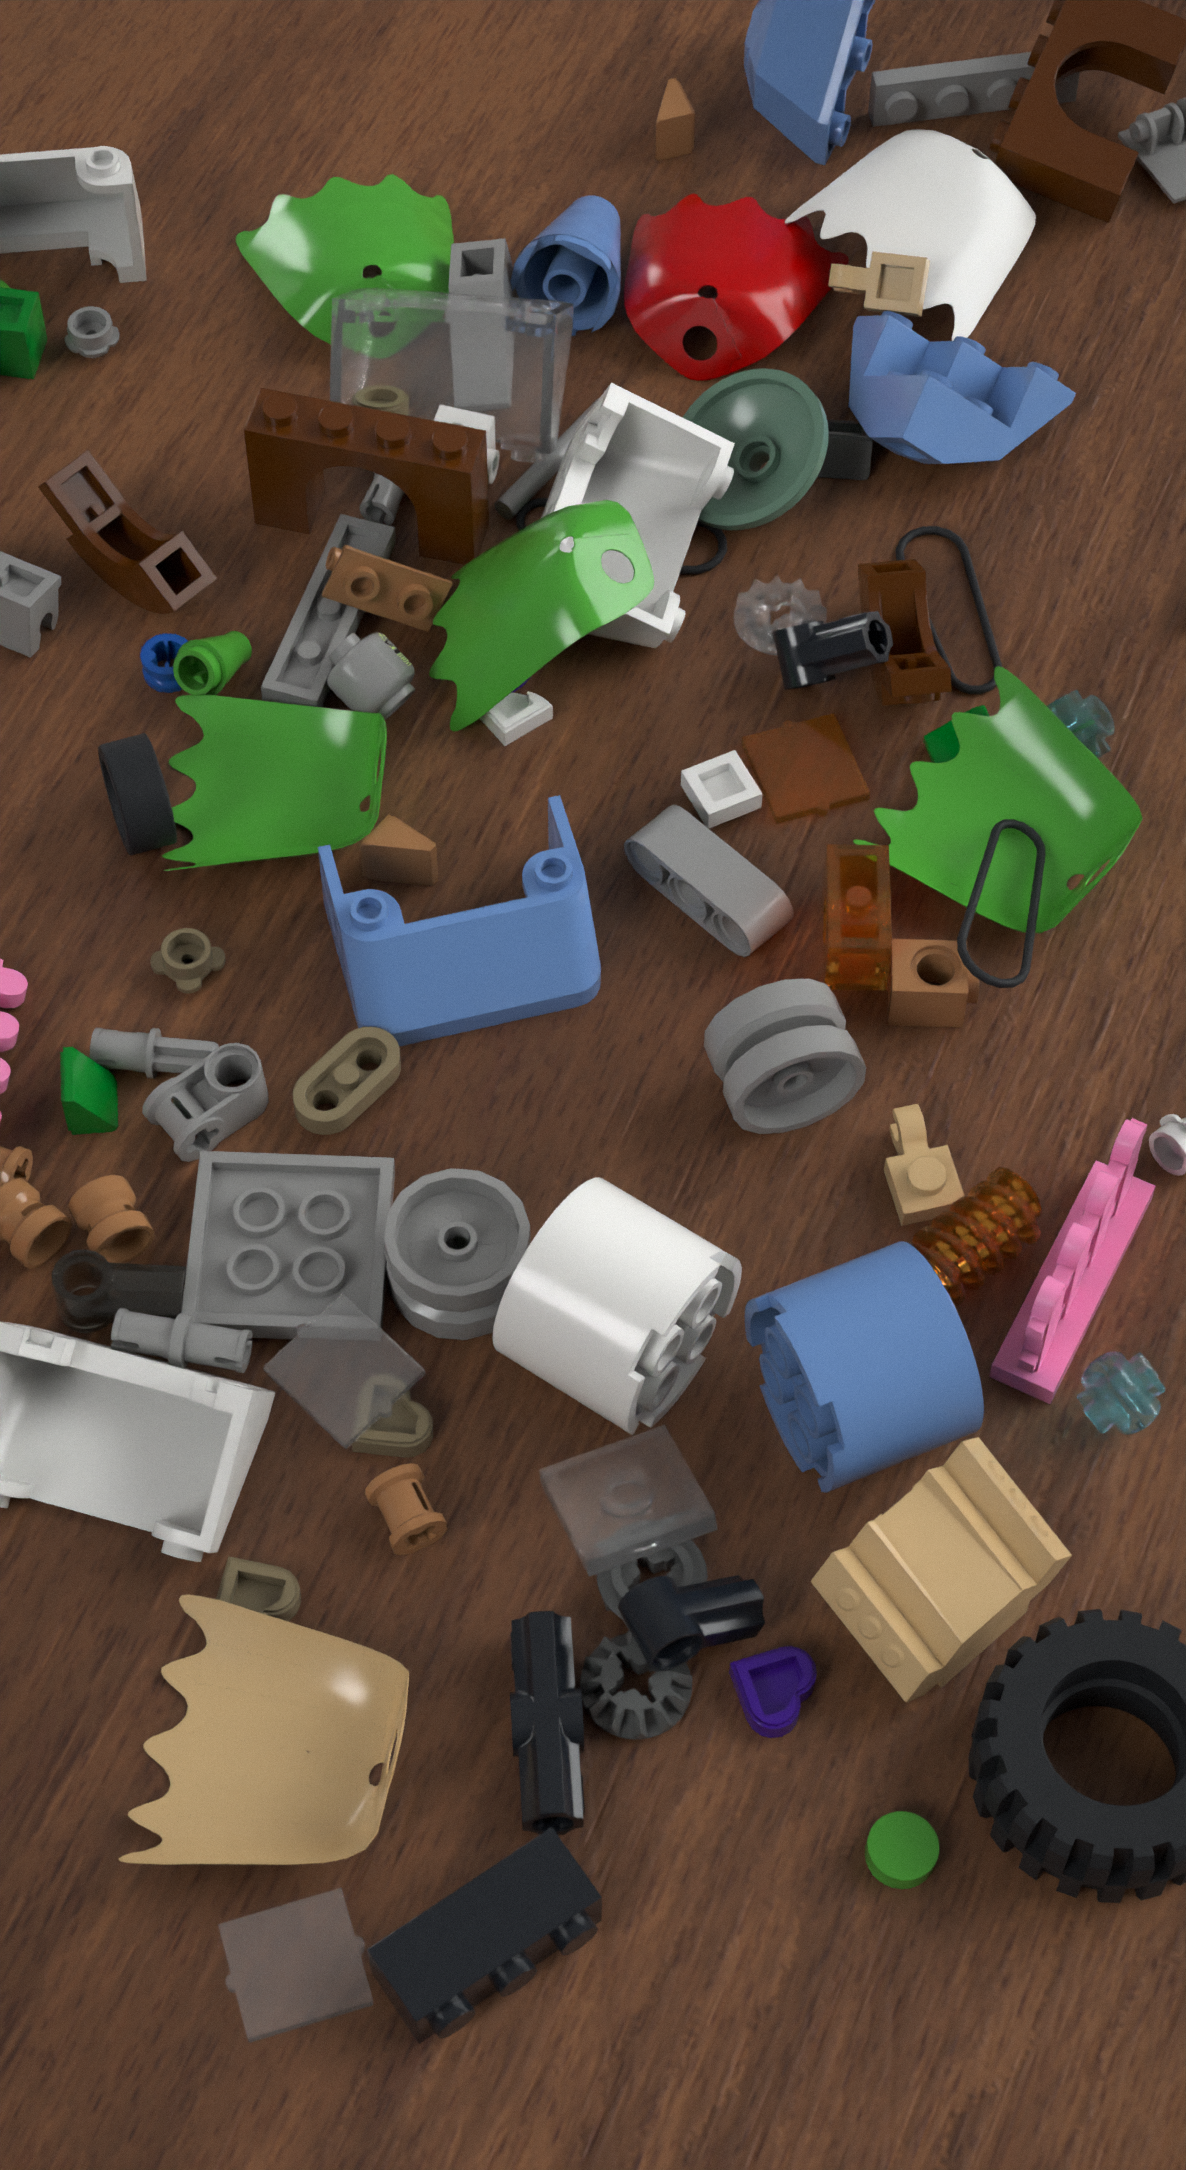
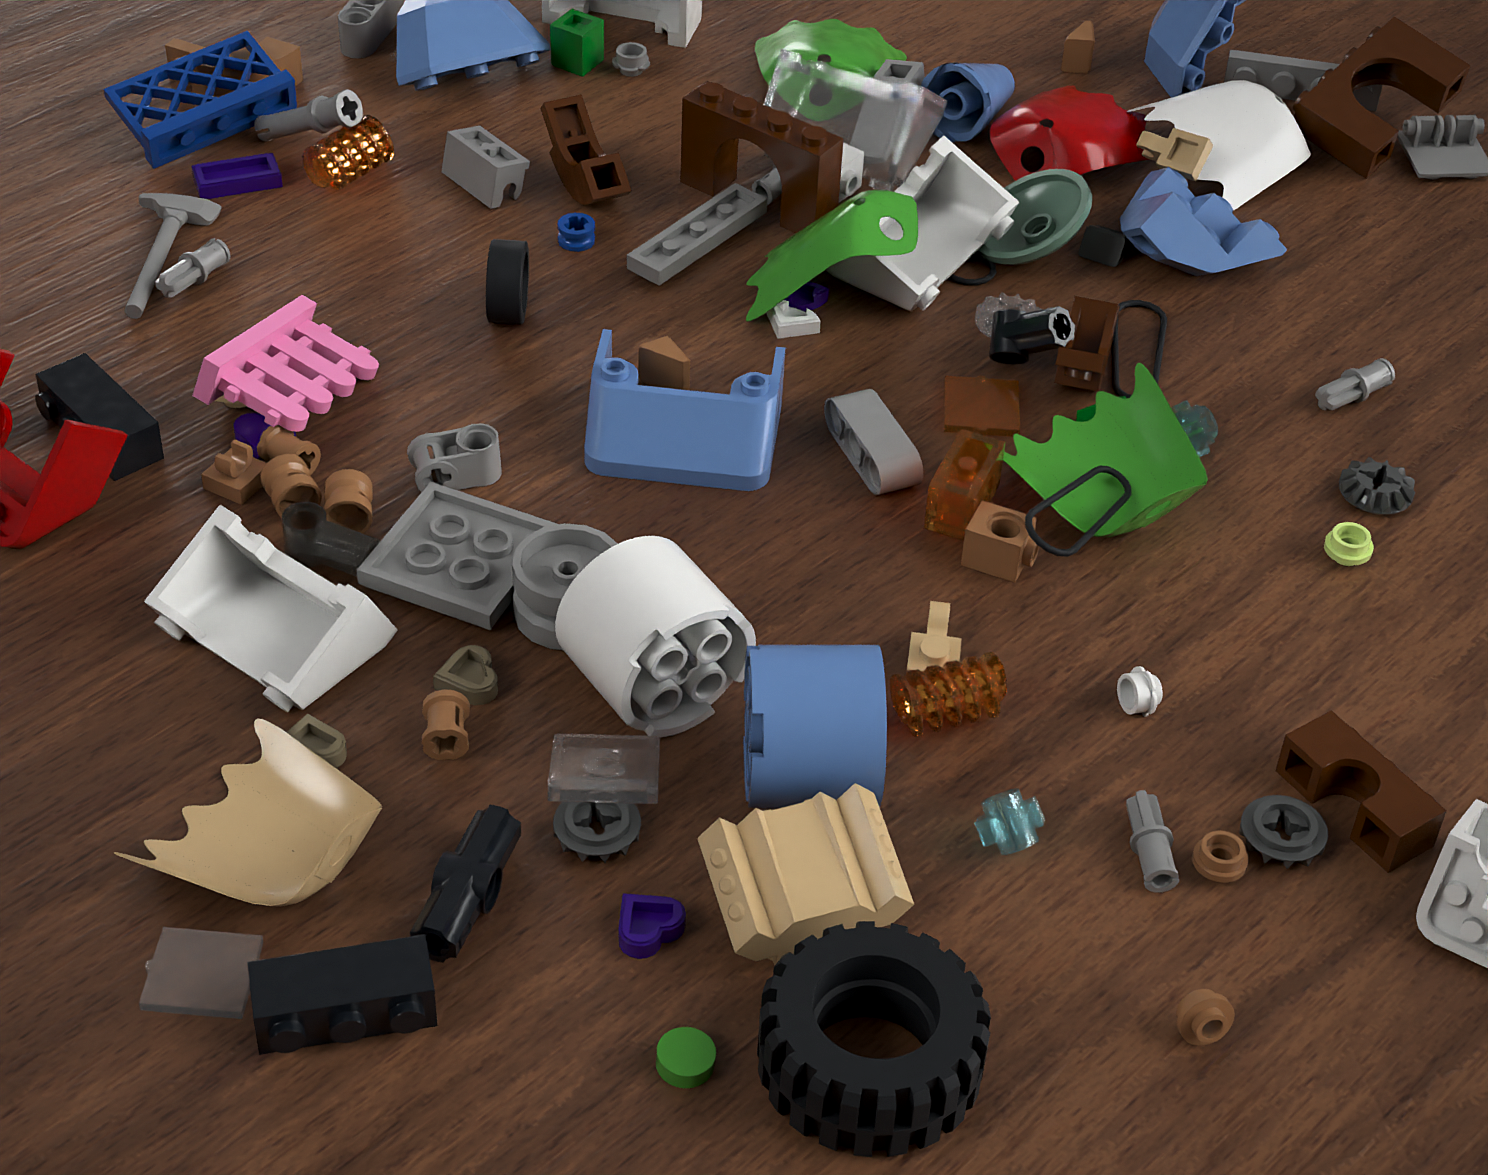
camera: 20 degrees right, 15 degrees down
(87, 1094) = (376, 433): green slope -> none
(146, 1051) = (421, 419): light grey axle -> none
(181, 1340) = (352, 572): light grey pin -> none
(184, 945) = (490, 383): dark tan plate -> none
(210, 662) = (600, 233): bright green cone -> none
(276, 779) = (609, 297): bright green piece -> none
(342, 1082) = (555, 477): dark tan plate -> none
(344, 1370) = (450, 630): clear piece -> none
(371, 674) = (703, 268): light grey head -> none
(384, 587) = (739, 223): medium nougat hinge -> none
(629, 1713) = (527, 894): dark grey gear -> none
(680, 1621) = (591, 845): black piece -> none
(721, 789) = (912, 396): white plate -> none
(784, 1056) = (864, 541): light grey wheel -> none
(1076, 1272) = (1015, 743): bright pink fence -> none

